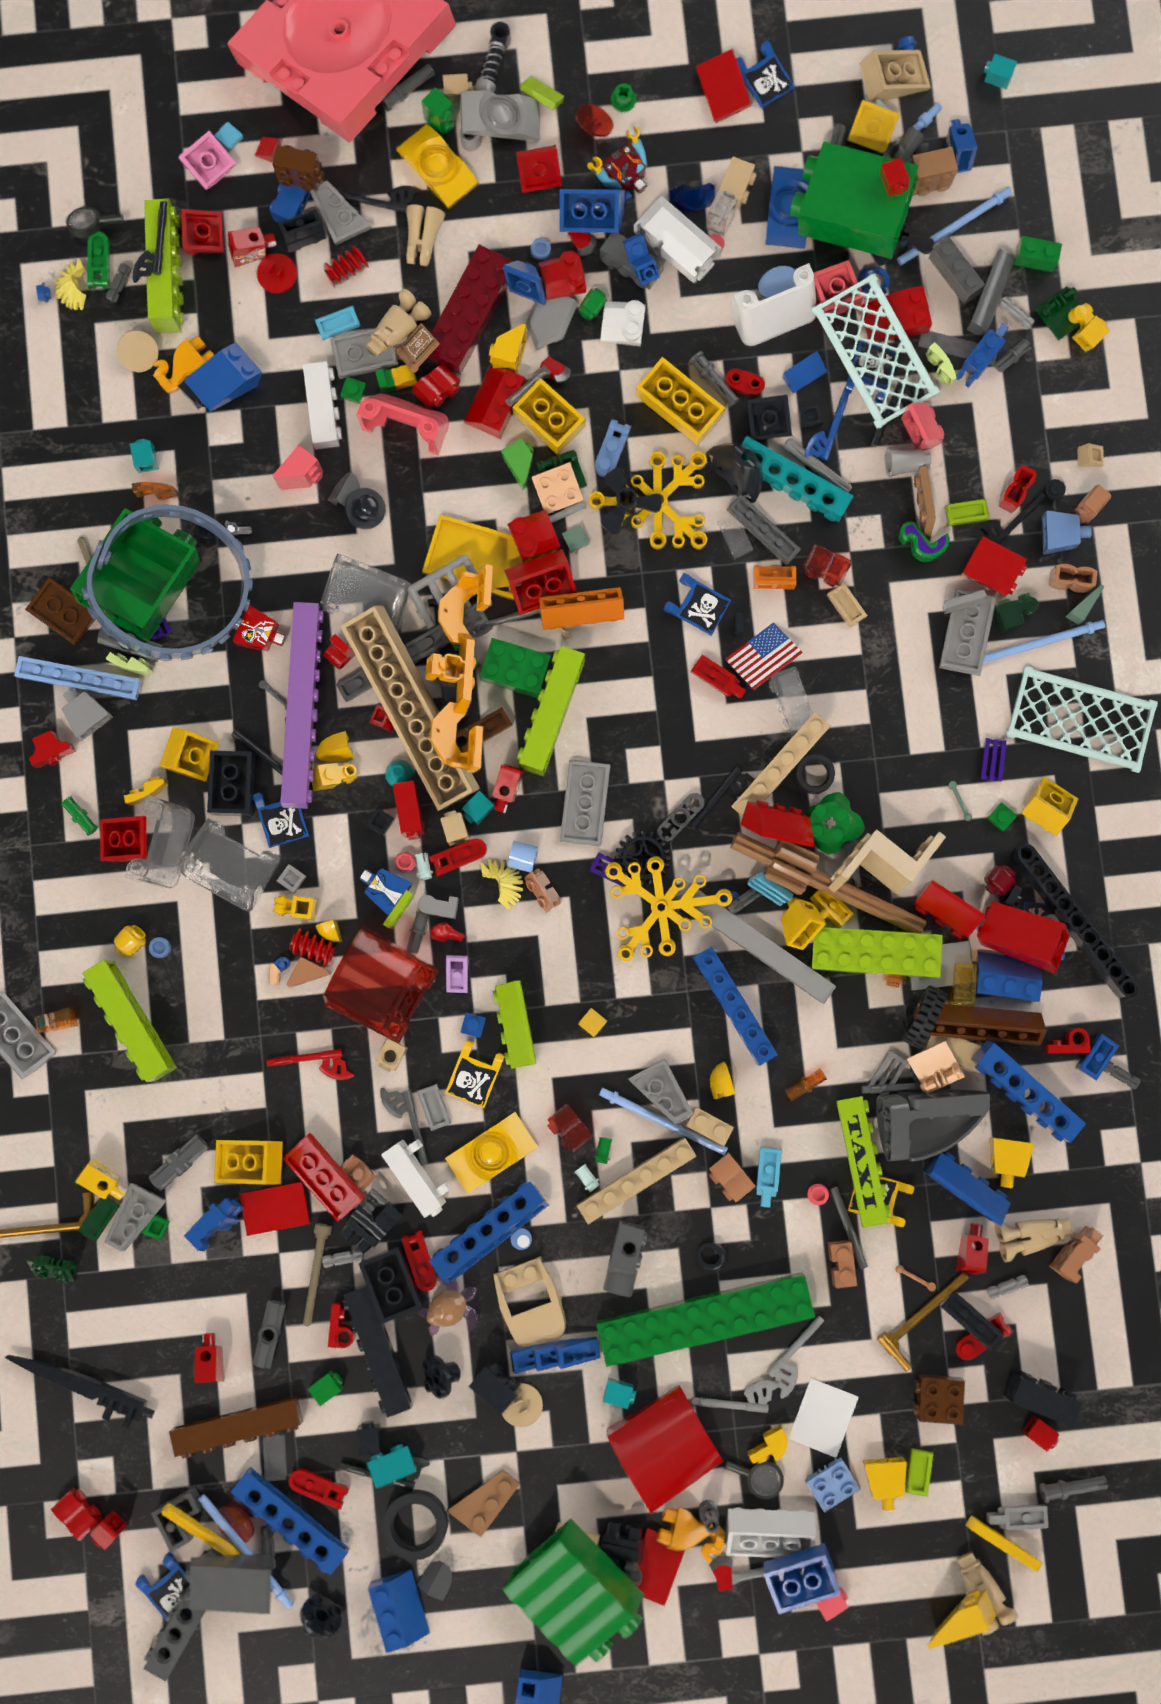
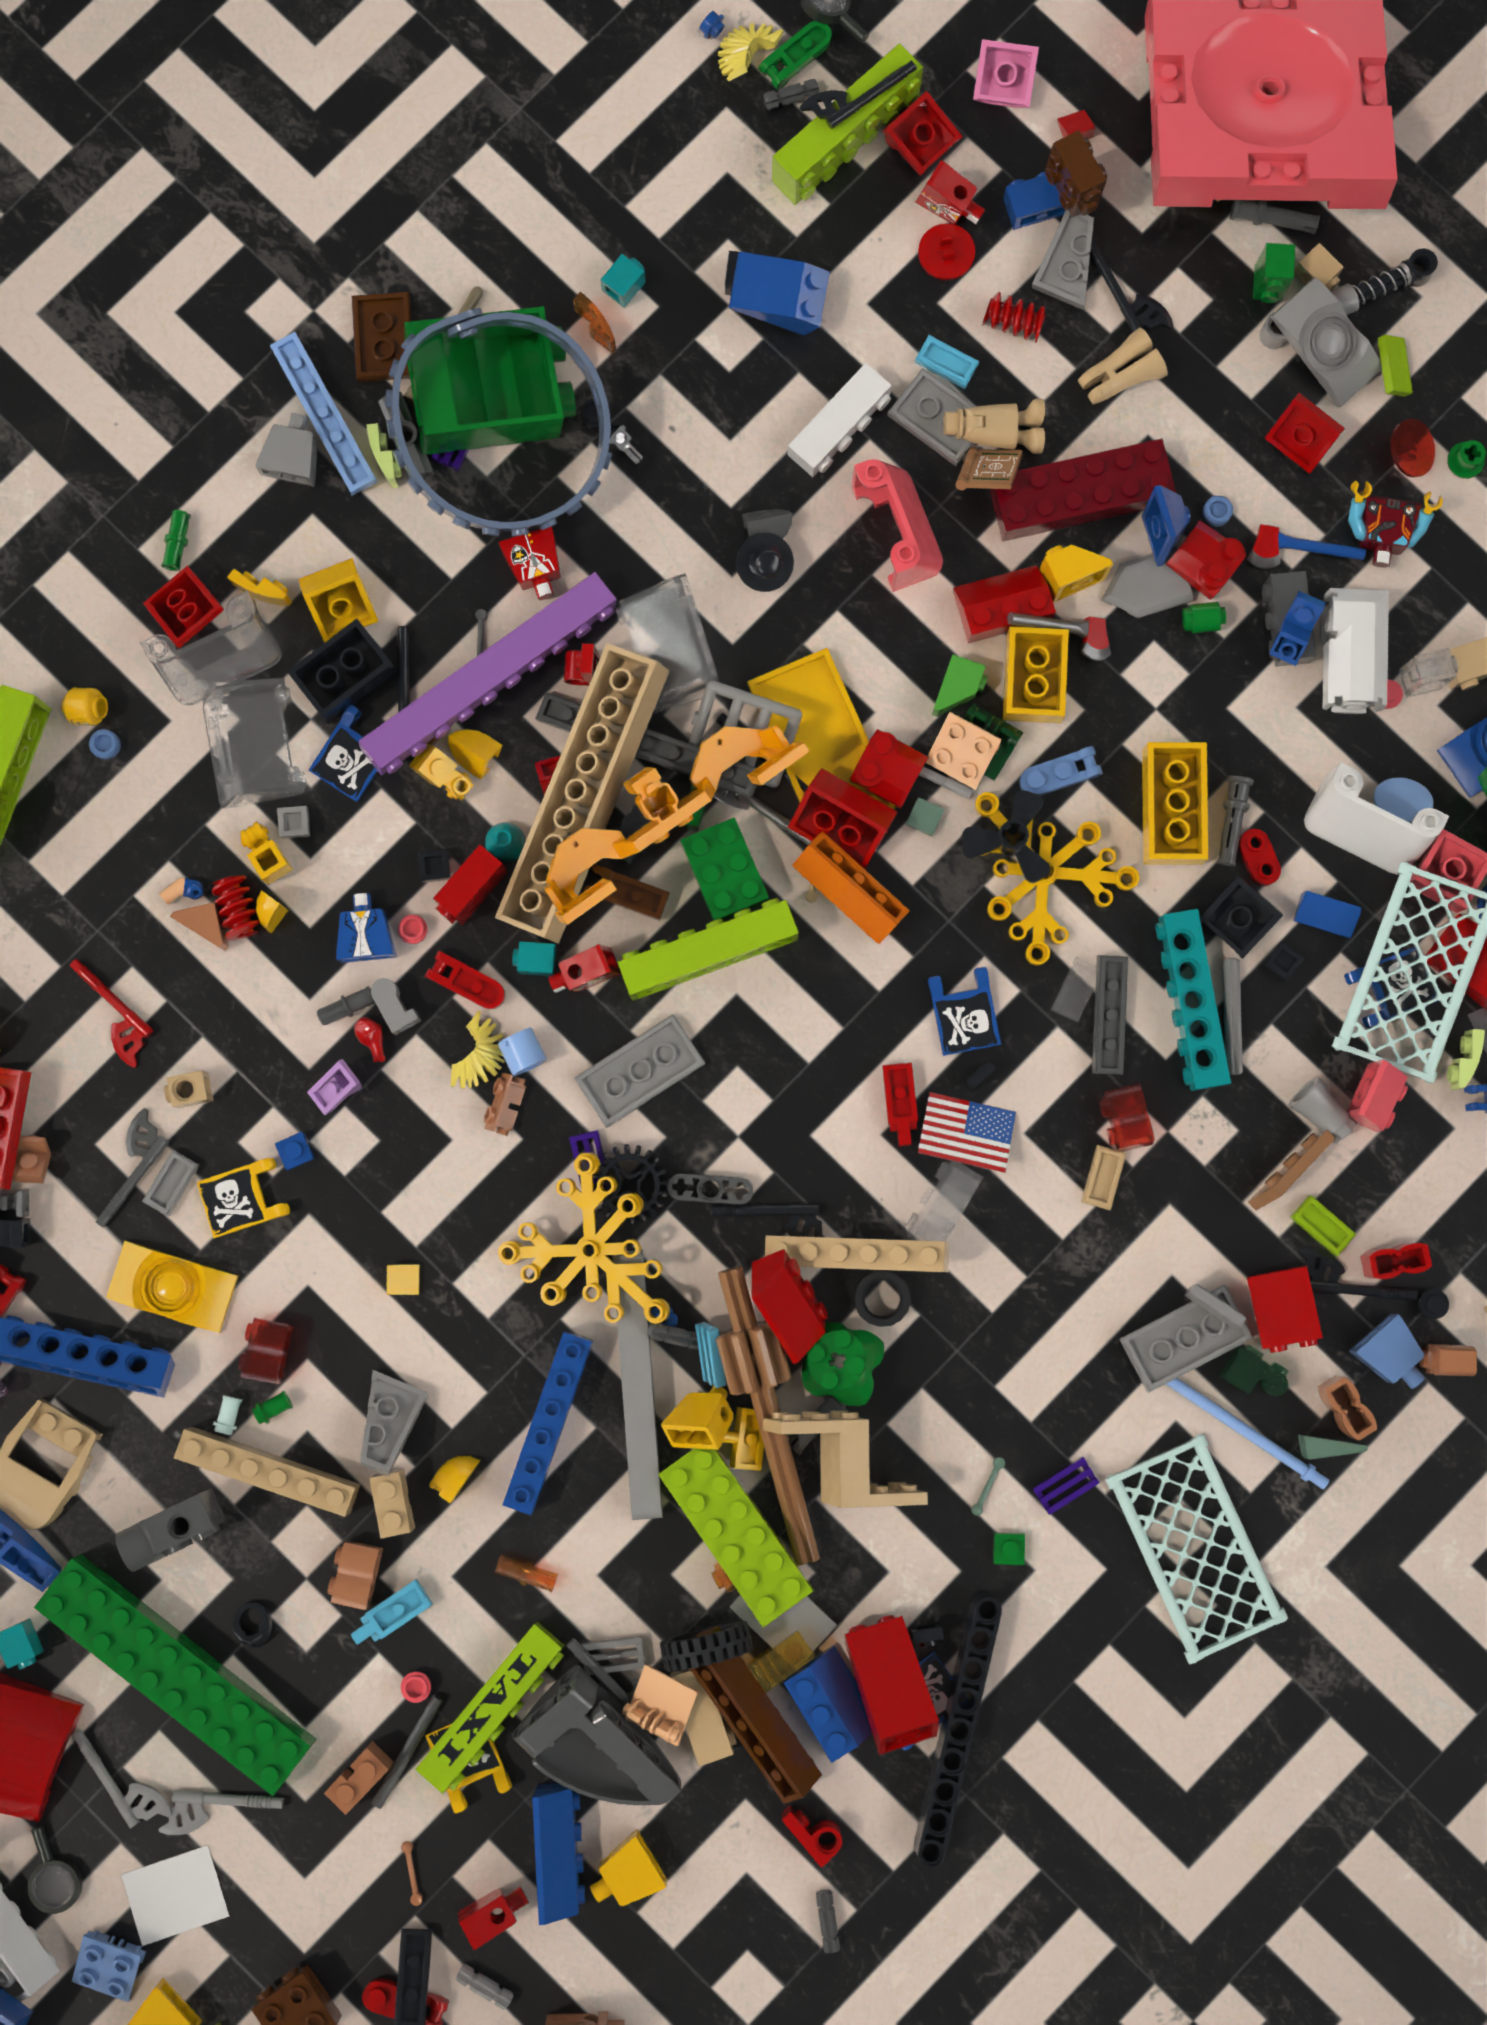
camera: 50 degrees right, 0 degrees up
(49, 749) = (221, 449): red brick -> none
(137, 351) = (732, 176): tan piece -> none
(185, 362) = (763, 237): light orange hips -> none
(228, 136) = (1053, 74): medium azure tile -> none
(298, 470) = (744, 456): coral slope -> none
(302, 230) = (1014, 238): black brick -> none
(353, 390) = (886, 441): green plate -> none
(378, 984) = (251, 1012): clear red windscreen -> none
(395, 379) = (935, 474): leg -> none
(398, 910) = (353, 966): lime tile -> none
(415, 1179) = (74, 1227): white brick -> none
(423, 866) = (423, 953): light aqua pin -> none
(437, 386) = (965, 526): red brick -> none
(438, 165) = (1215, 322): yellow slope -> none
(454, 828) = (490, 952): tan brick -> none
(515, 1024) = (330, 1198): lime slope -> none
(521, 1239) = (103, 1398): medium blue tile -> none
(591, 210) = (1306, 528): blue slope -> none
(615, 1098) = (353, 1427): light blue bar -> none
(623, 322) = (1212, 668): white slope -> none
(689, 199) = (1414, 624): clear blue slope -> none
(736, 469) = (1150, 932): black piece -> none
(774, 577) = (1066, 1071): orange hinge -> none
(775, 1444) = (98, 1864): yellow brick -> none
(824, 452) = (1268, 1005): blue piece -> none
(890, 1341) = (317, 1903): pearl gold bar -> none
(894, 399) = (1377, 1040): black piece -> none
(920, 545) = (1239, 1204): green animal -> none
(948, 910) = (849, 1573): red slope -> none
(999, 880) = (933, 1605): dark red head -> none
(1031, 1236) = (562, 1969): tan piece -> none
(1050, 806) = (1065, 1593): yellow slope -> none
(1069, 1122) = (719, 1909): blue brick -> none
(1100, 1054) = (832, 1880): blue slope -> none

